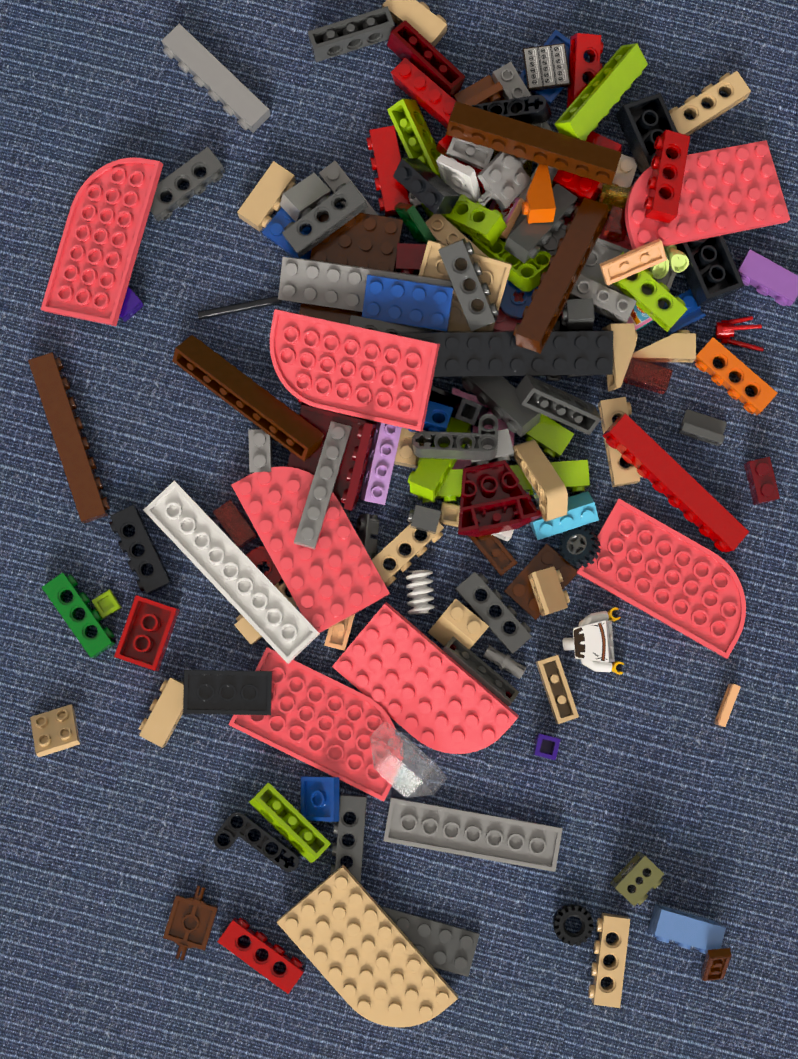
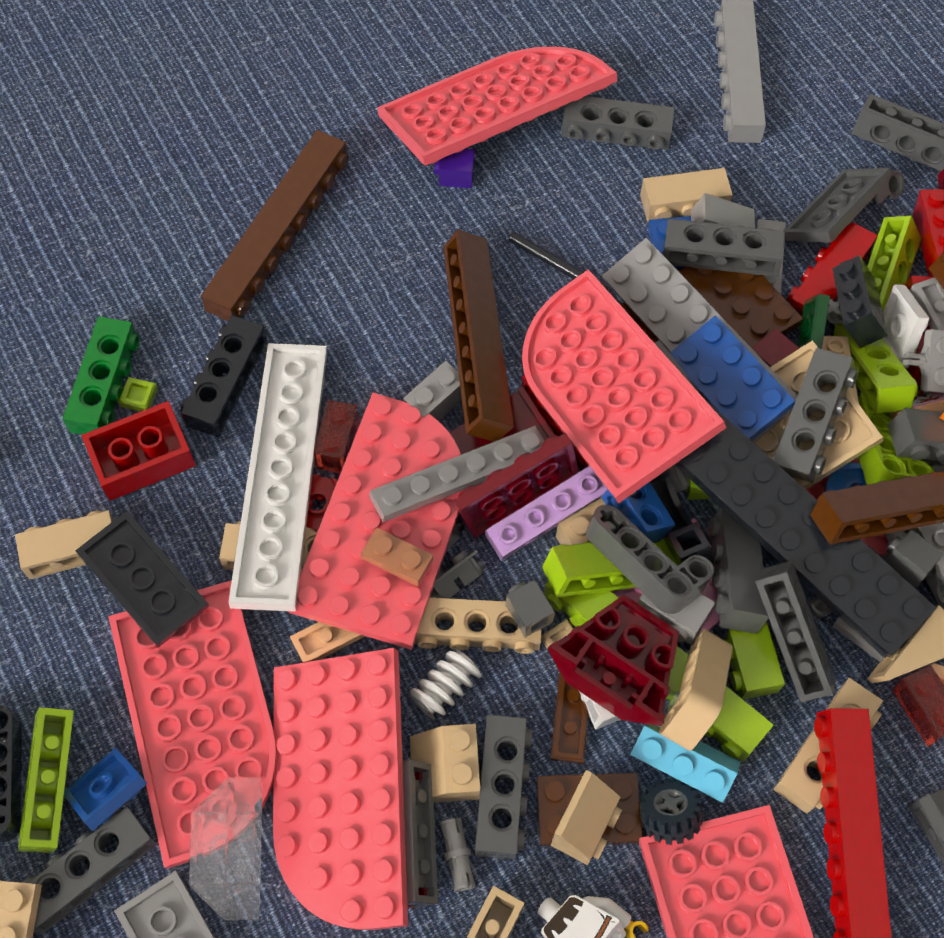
camera: 45 degrees right, 20 degrees down
(339, 559) = (397, 556): none -> nougat plate
(363, 92) = (842, 202): none -> dark grey hinge

